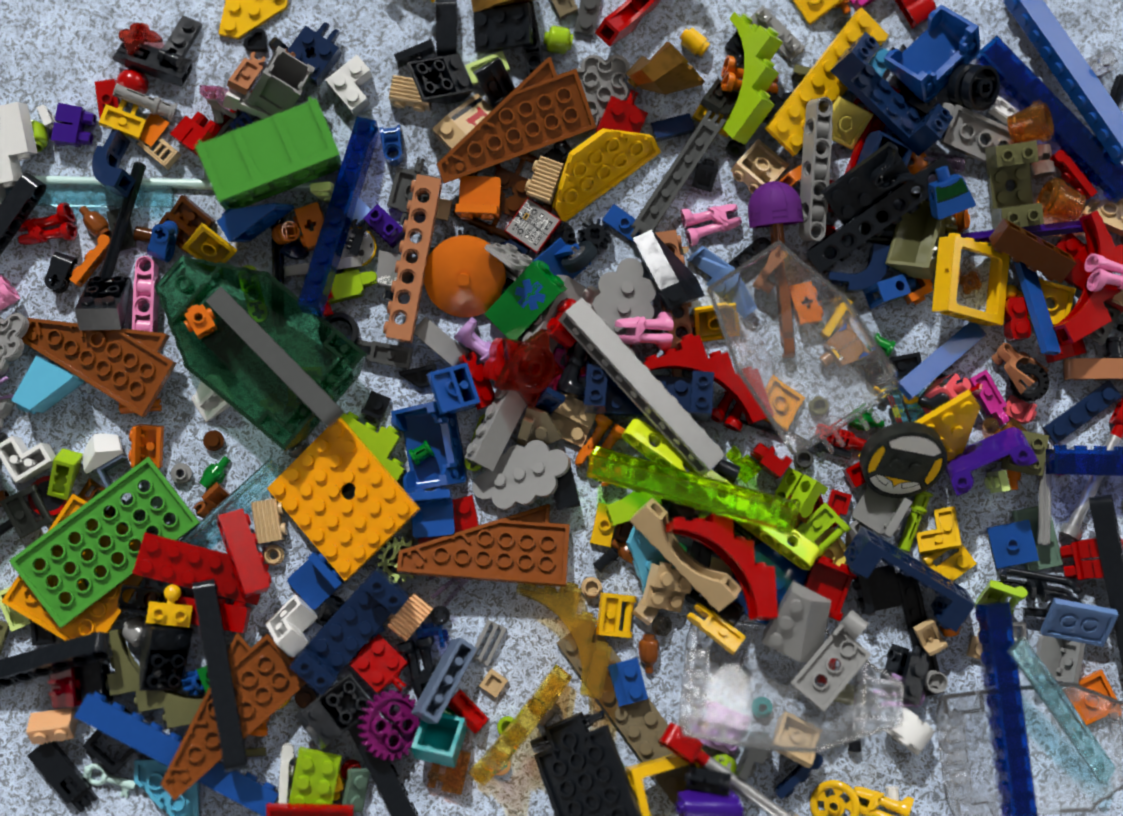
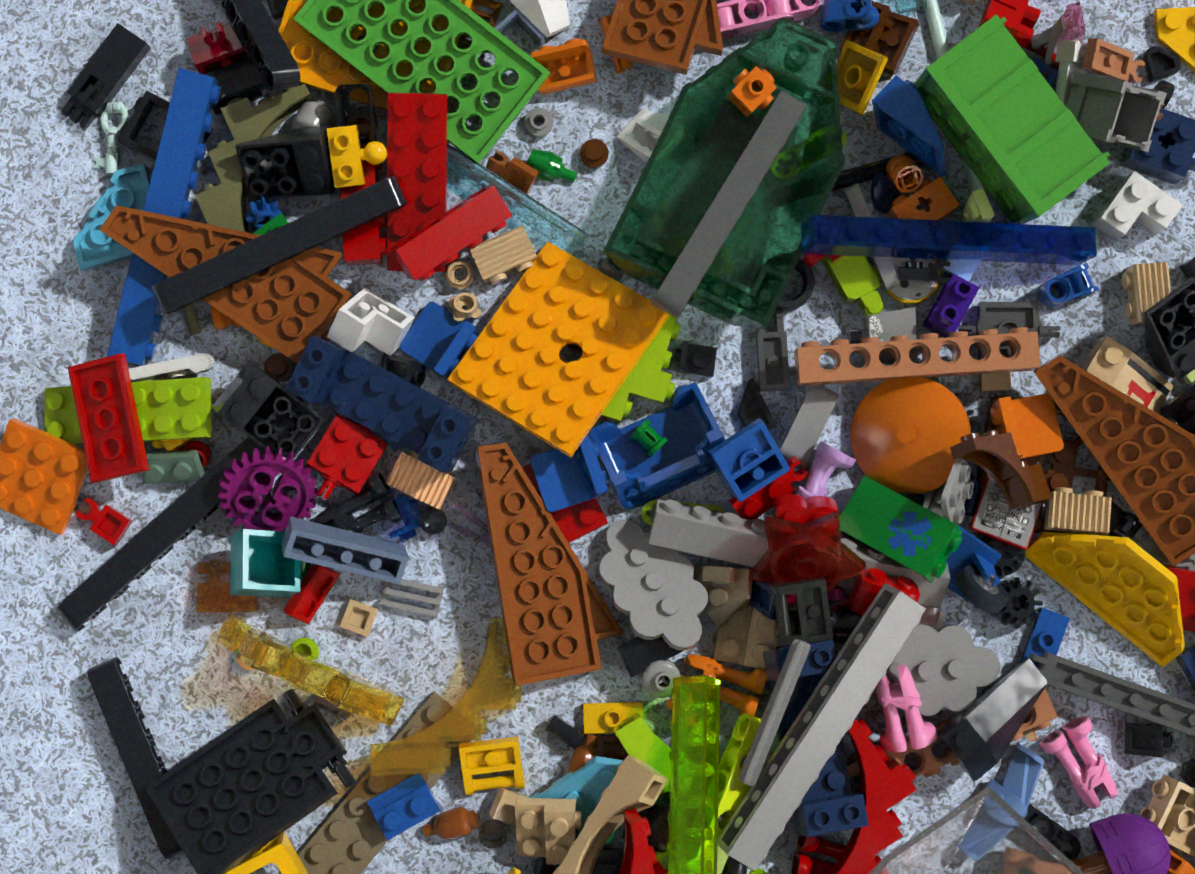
camera: 85 degrees right, 0 degrees up
(52, 725) = (163, 44): light nougat brick -> none
(292, 557) = (468, 300): none -> tan plate
(387, 562) = (486, 429): yellowish green gear -> none
(493, 222) = (999, 458): none -> reddish brown arch
(563, 372) = (811, 610): none -> pearl dark grey plate
(585, 487) = (659, 669): none -> light grey head
(591, 587) = (522, 721): tan plate -> none
(625, 415) = (774, 712): none -> light grey axle
(706, 323) = (935, 797): yellow slope -> none

